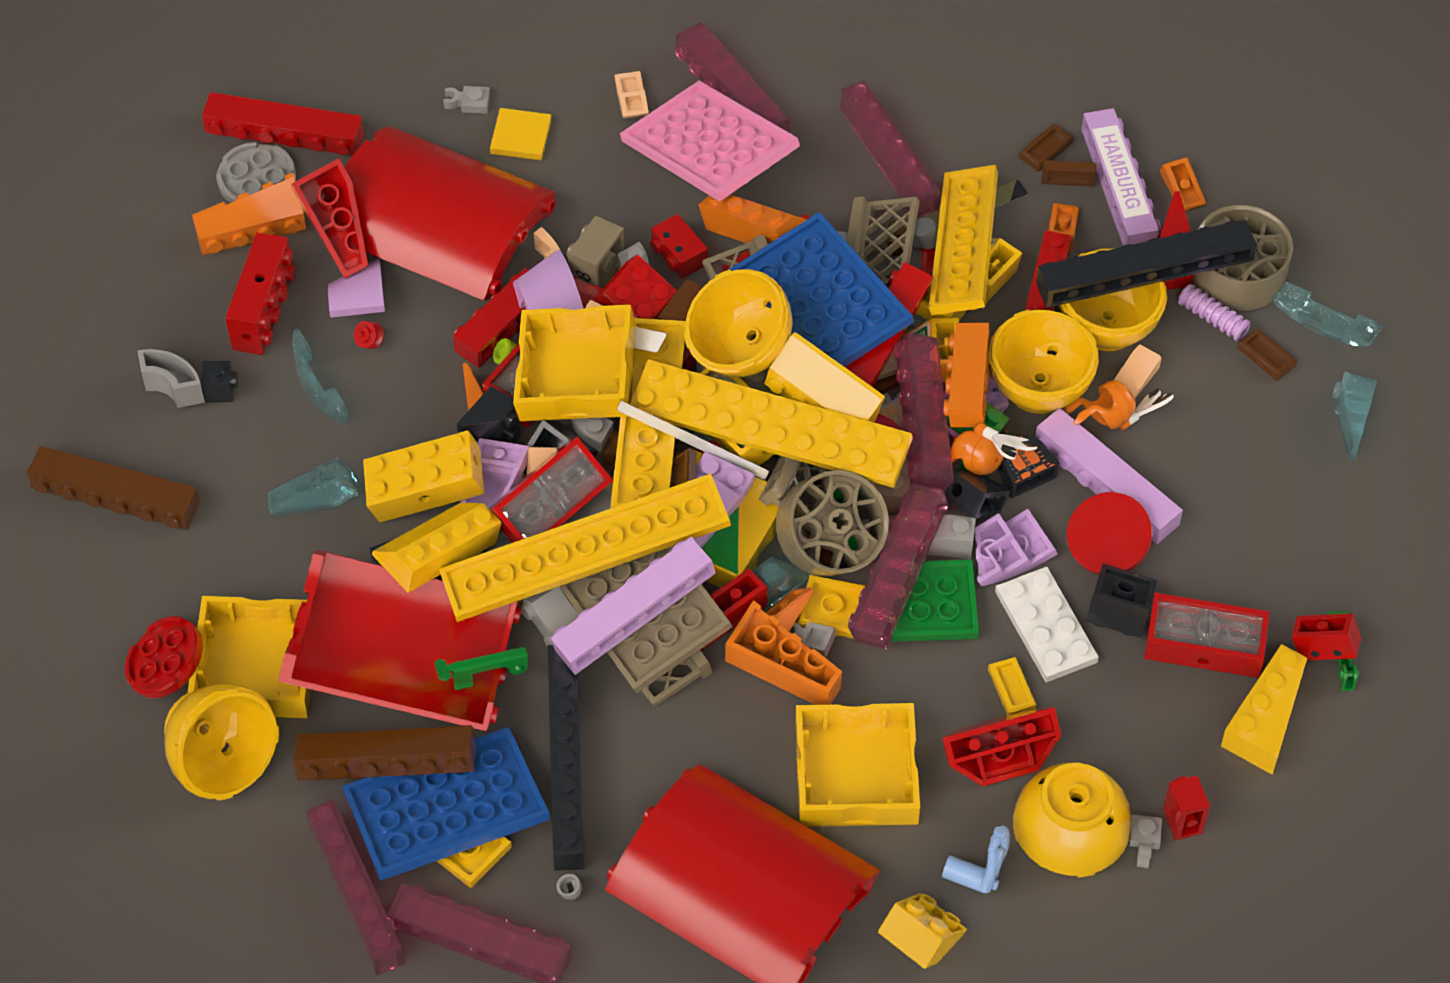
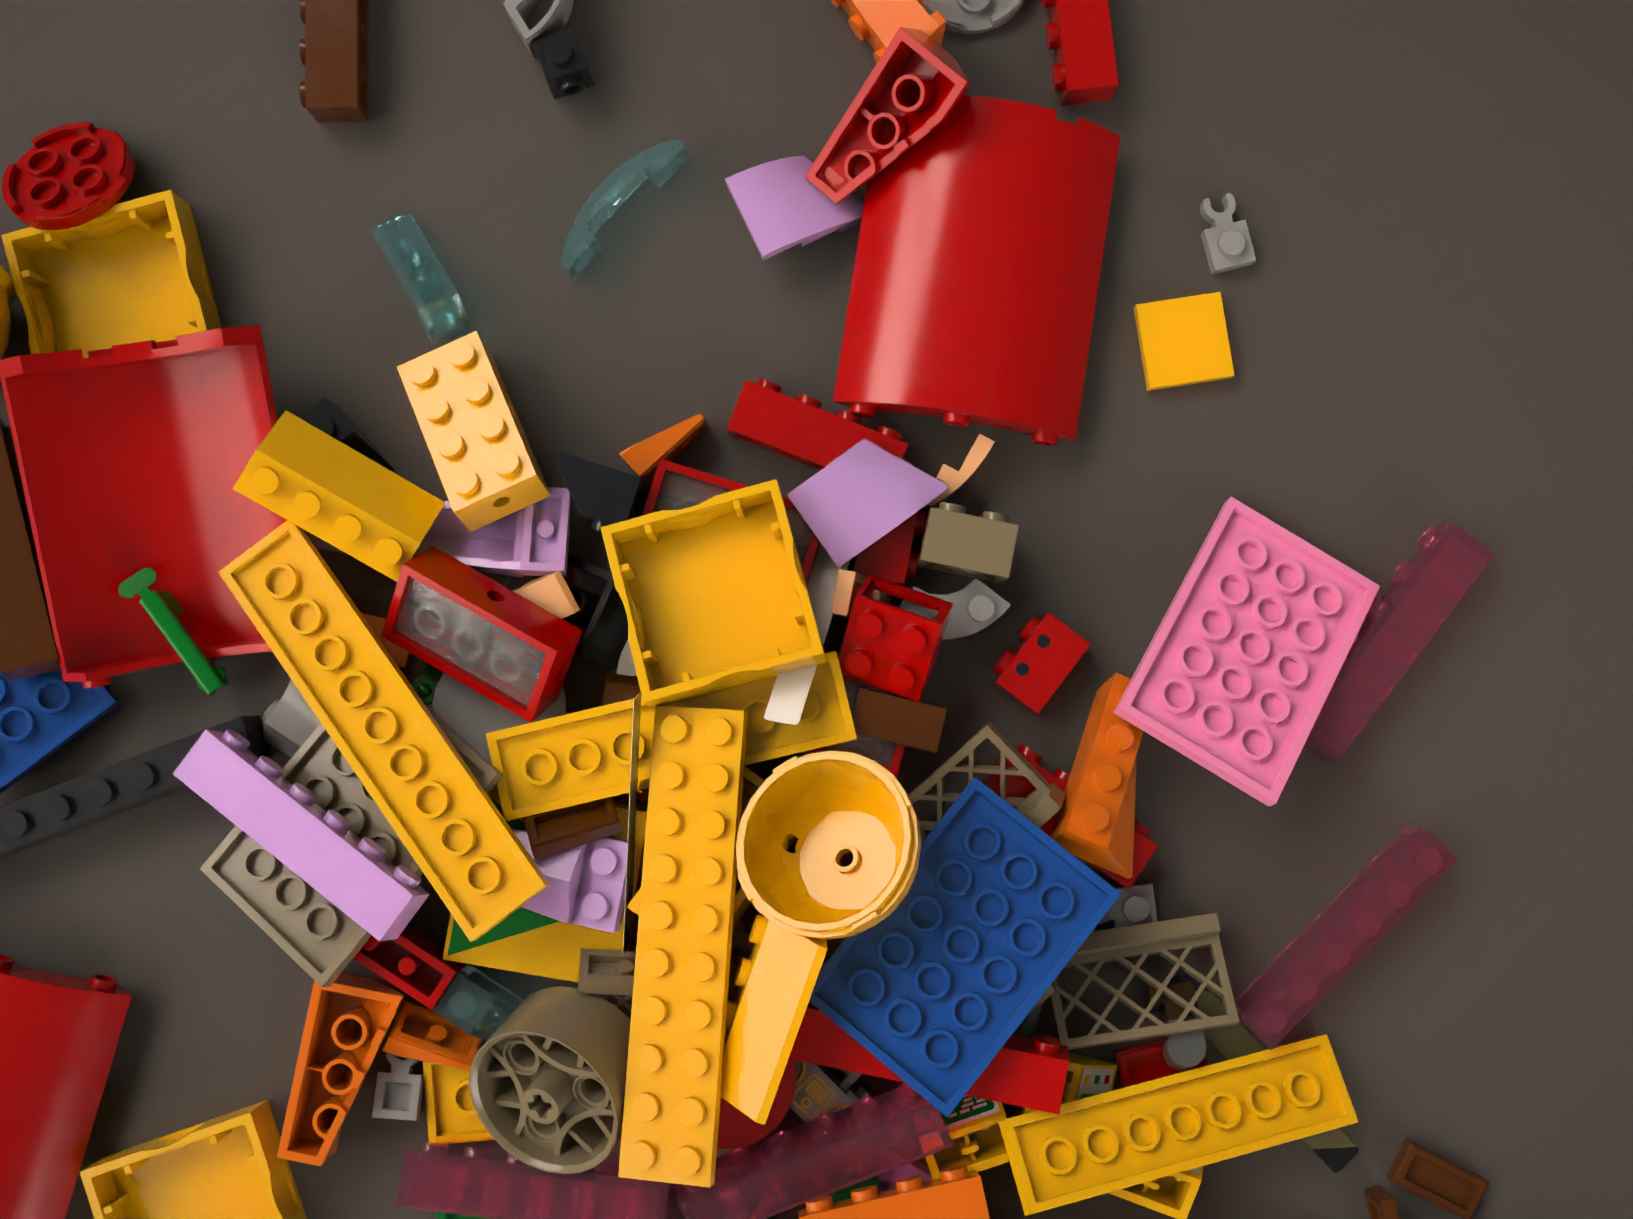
camera: 70 degrees right, 30 degrees up
(260, 294) = (728, 61): red brick -> none
(368, 334) = (721, 251): red wheel -> none
(502, 350) = (756, 466): lime tile -> none
(631, 94) = (1317, 487): light nougat slope -> none

